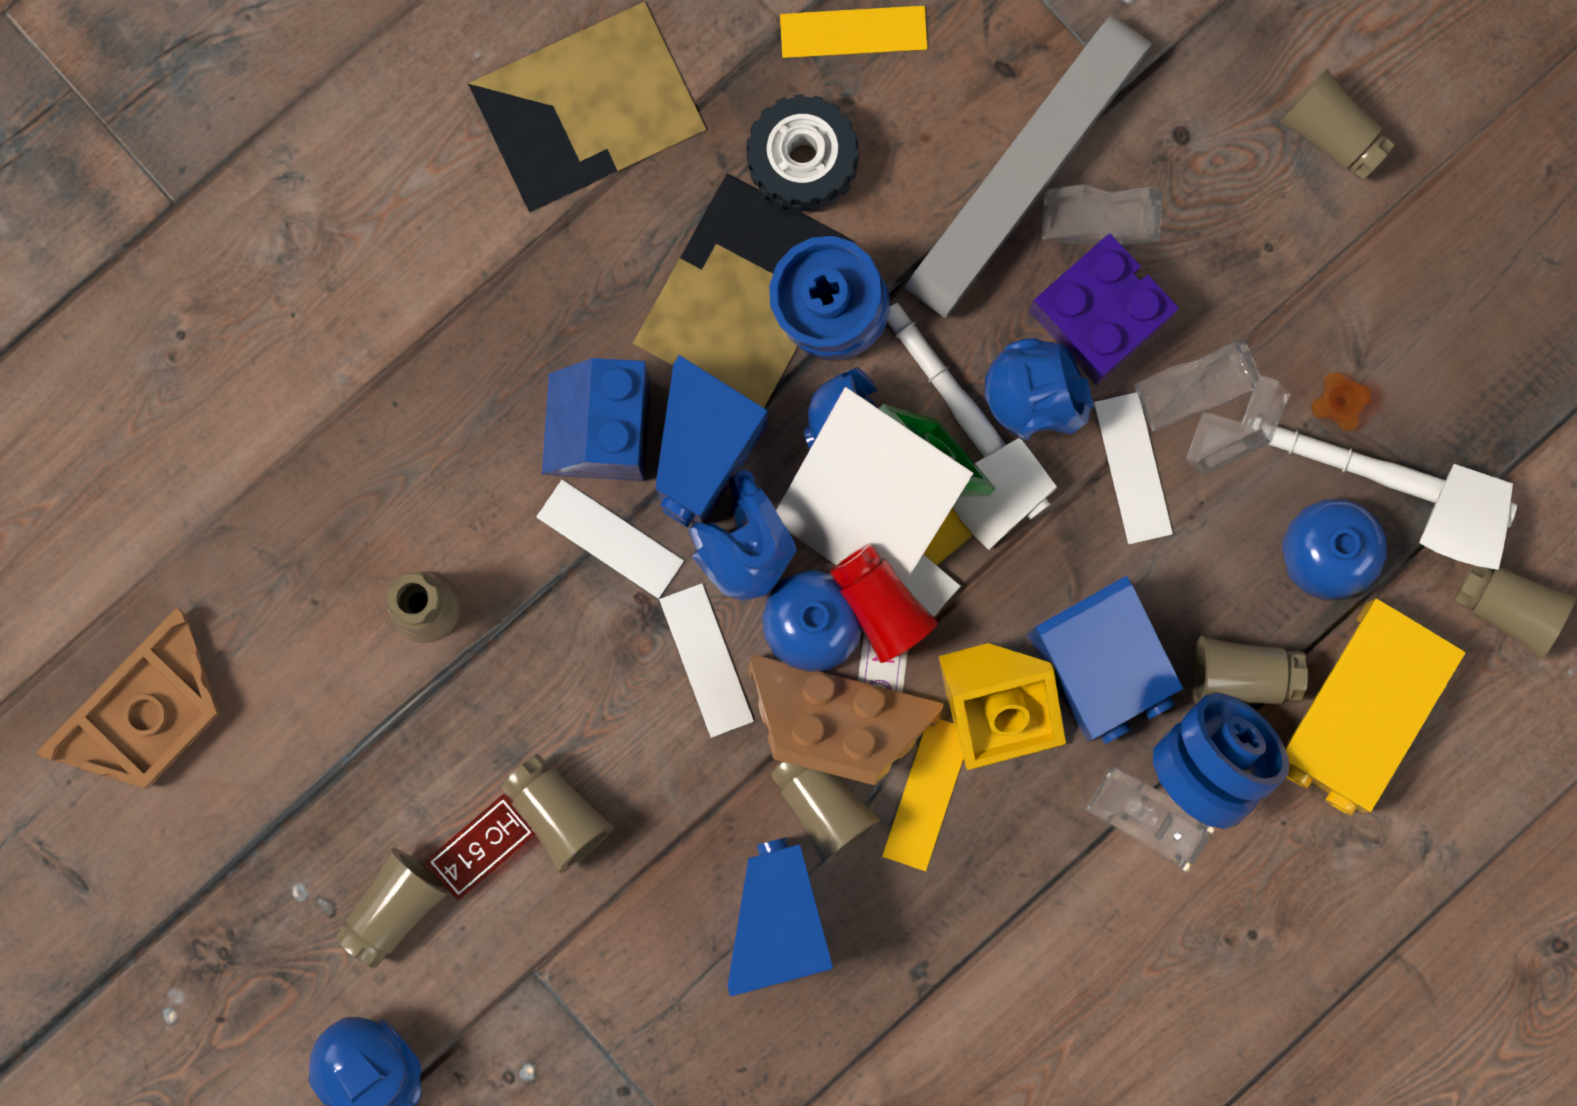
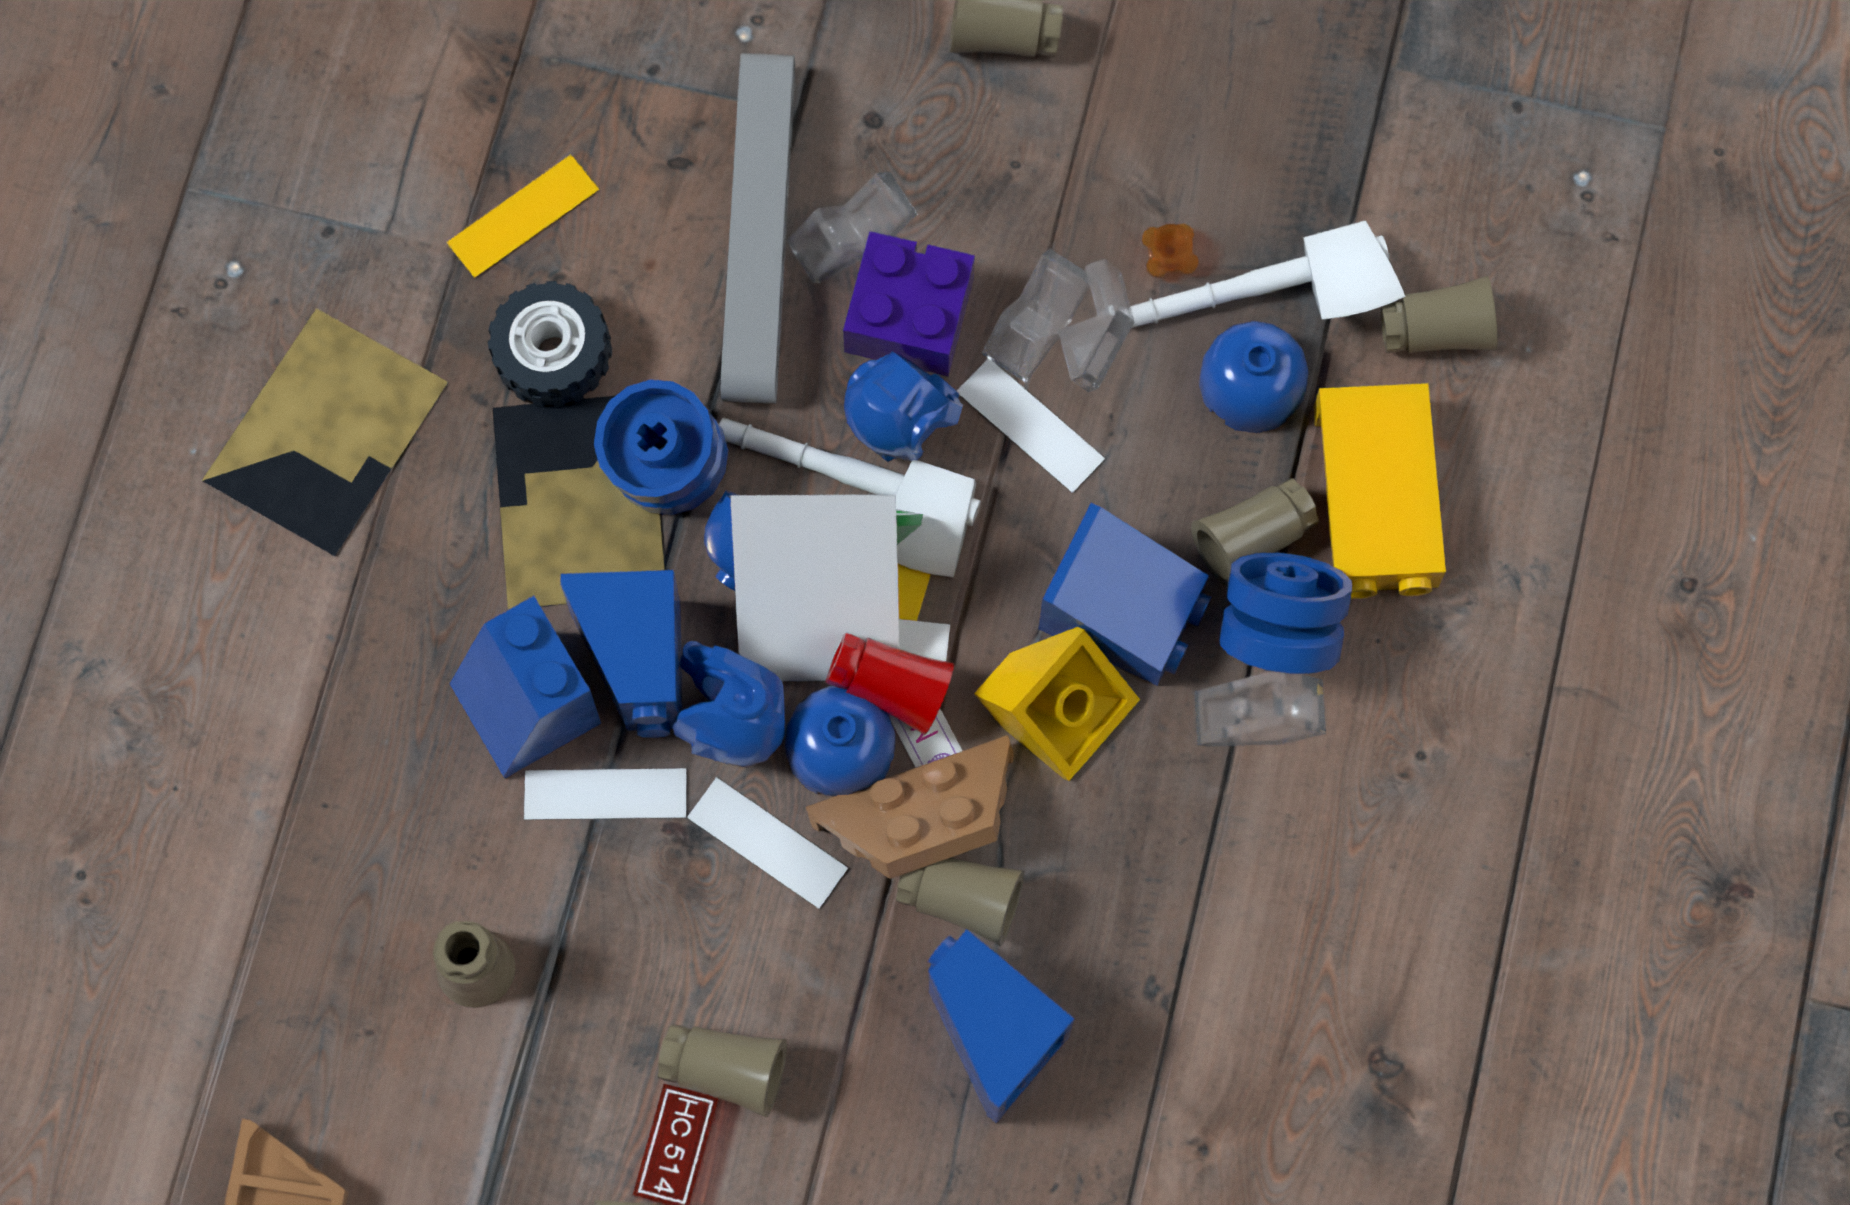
camera: 35 degrees left, 10 degrees down
(925, 797) = (1048, 831): yellow sticker -> none

